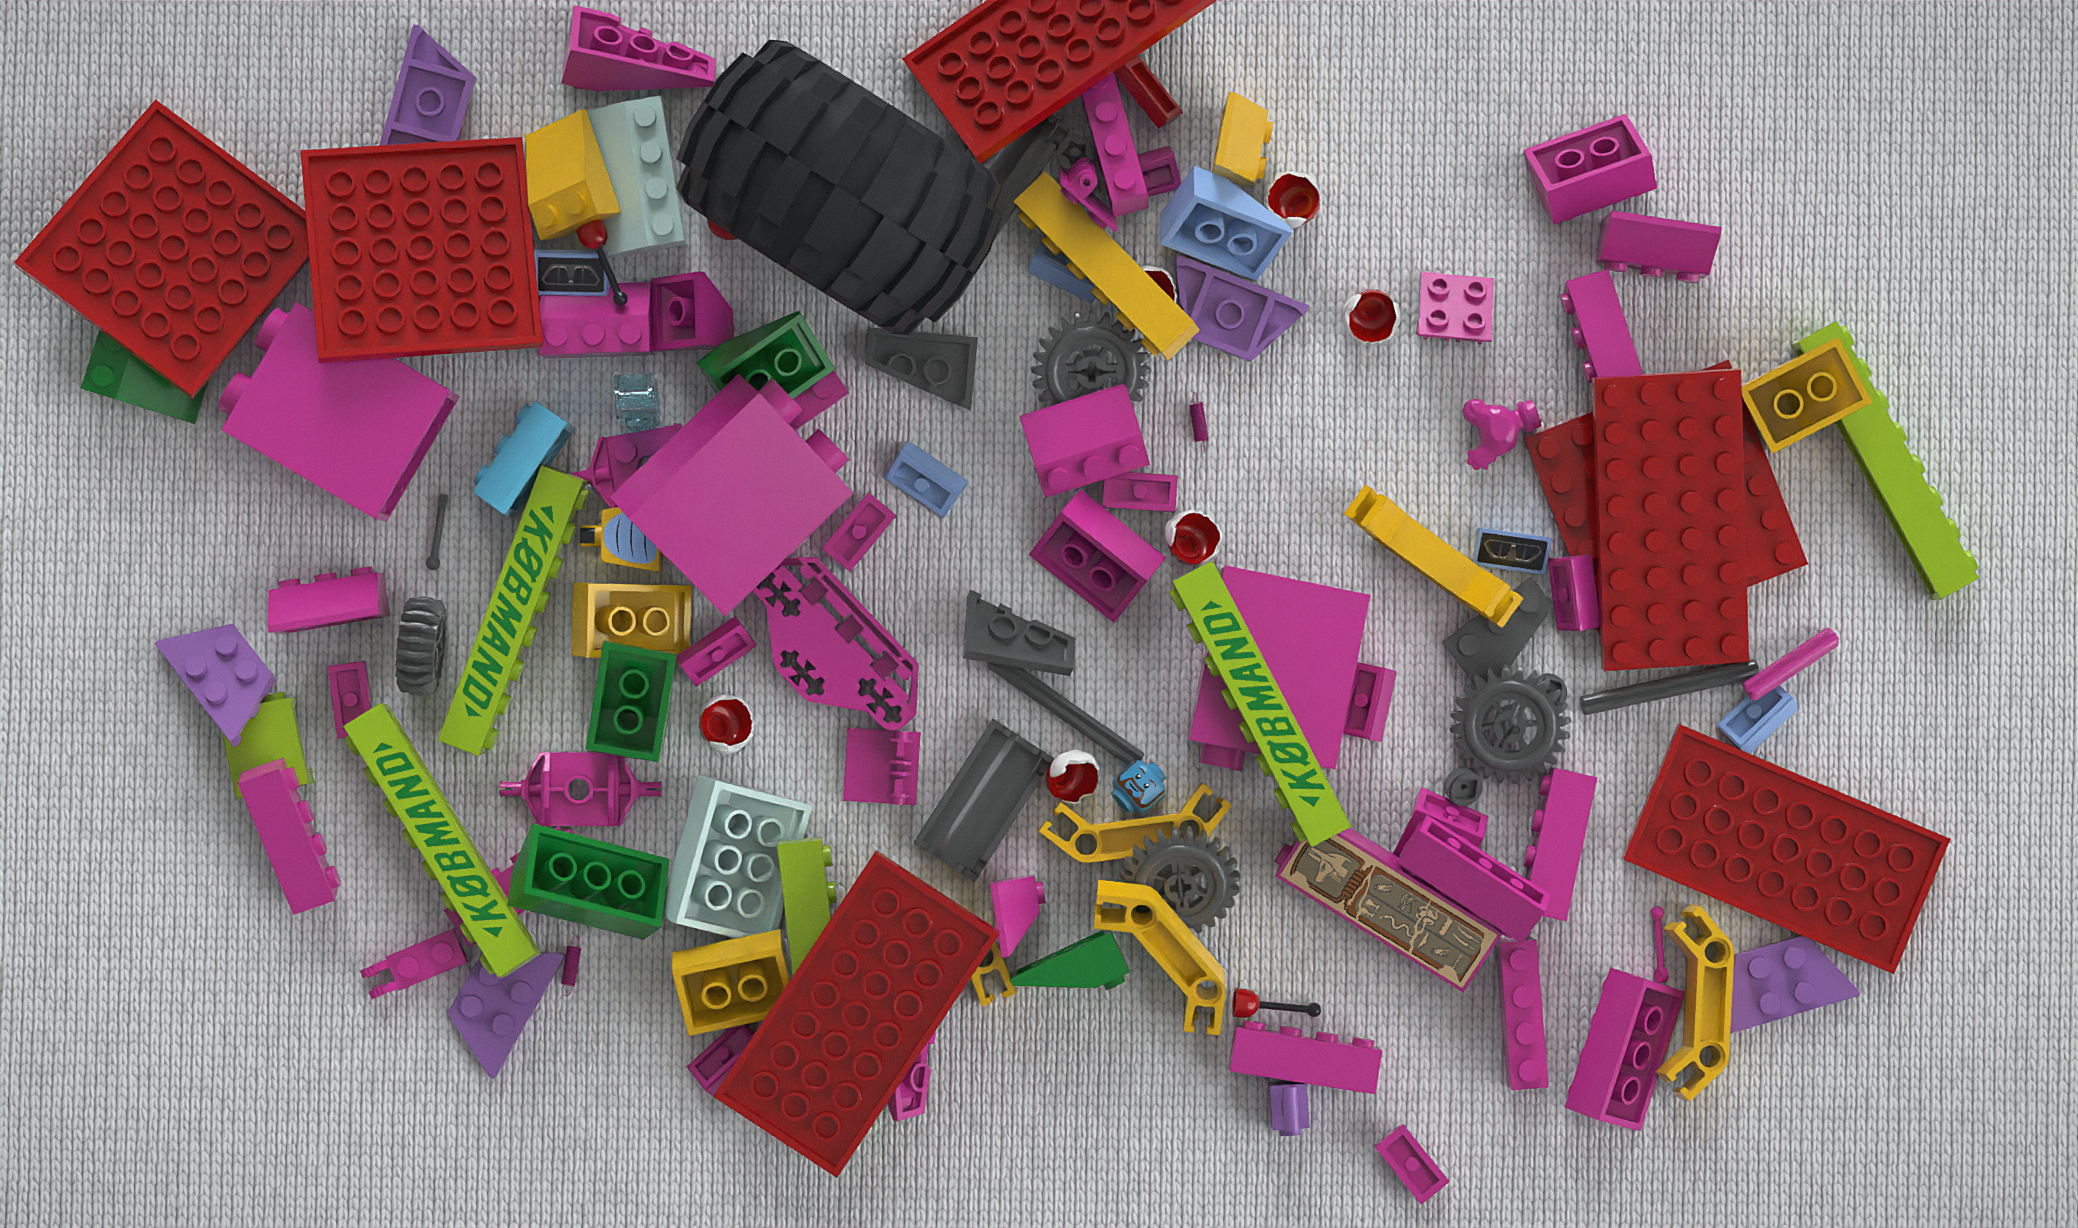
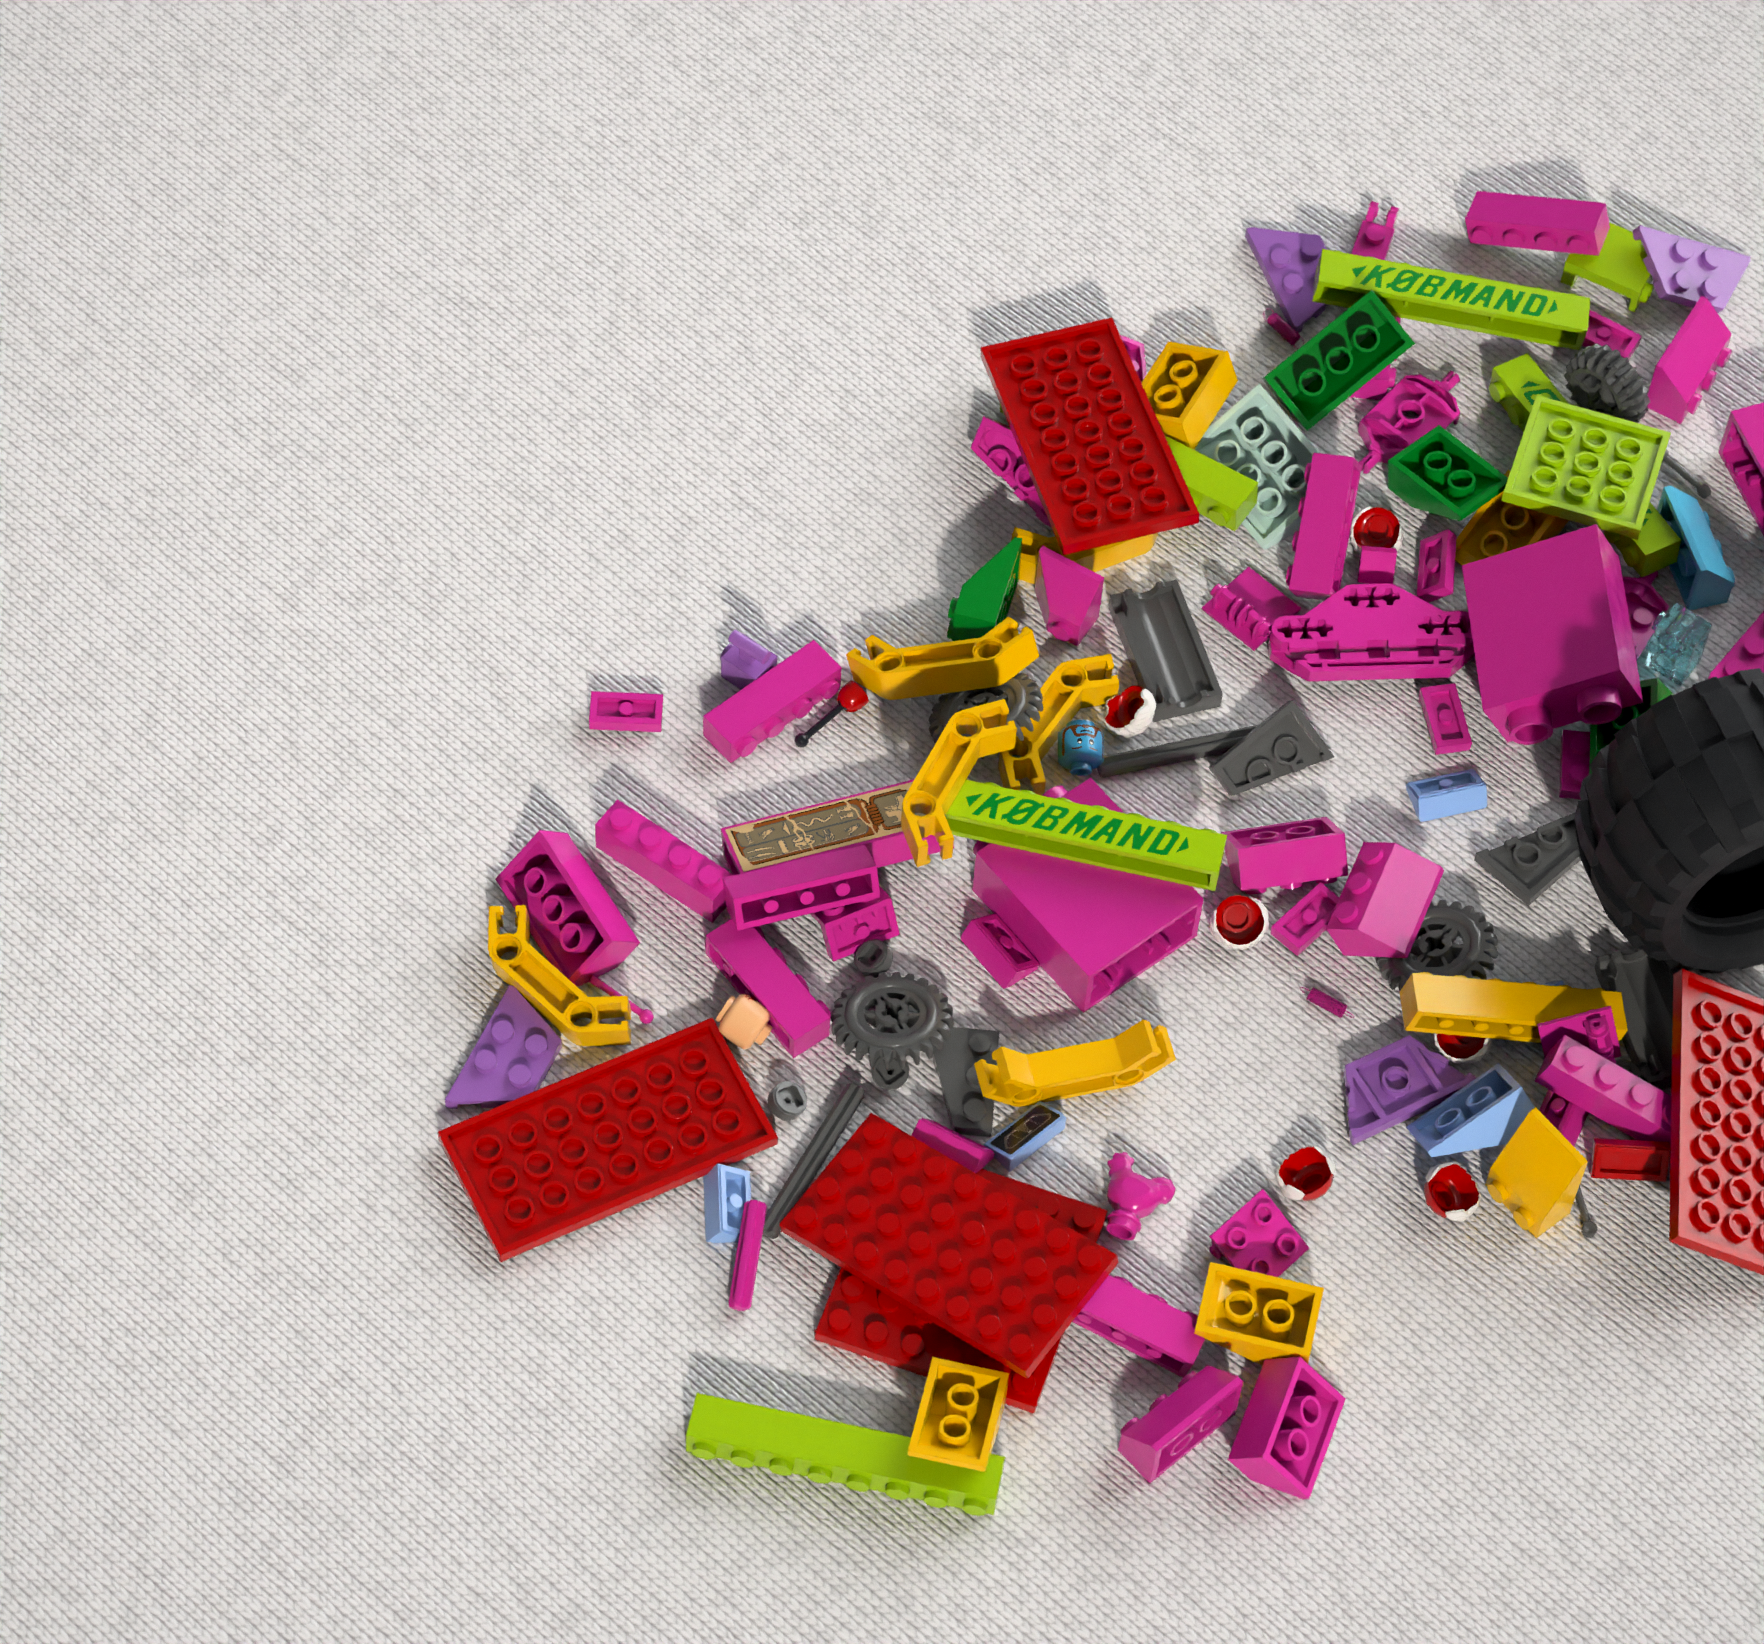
camera: 130 degrees right, 30 degrees down
(535, 592) = (1586, 467): none -> lime plate
(756, 698) = (1376, 565): none -> dark pink tile
(772, 759) = (1324, 526): none -> dark pink brick
(1226, 83) = (1589, 1228): none -> dark grey hinge
(1320, 832) = (947, 771): none -> yellow piece
(1527, 253) = (1258, 1314): none -> yellow slope
(1606, 833) = (744, 1021): none -> light nougat head
(1639, 746) = (787, 1100): none -> dark grey tile

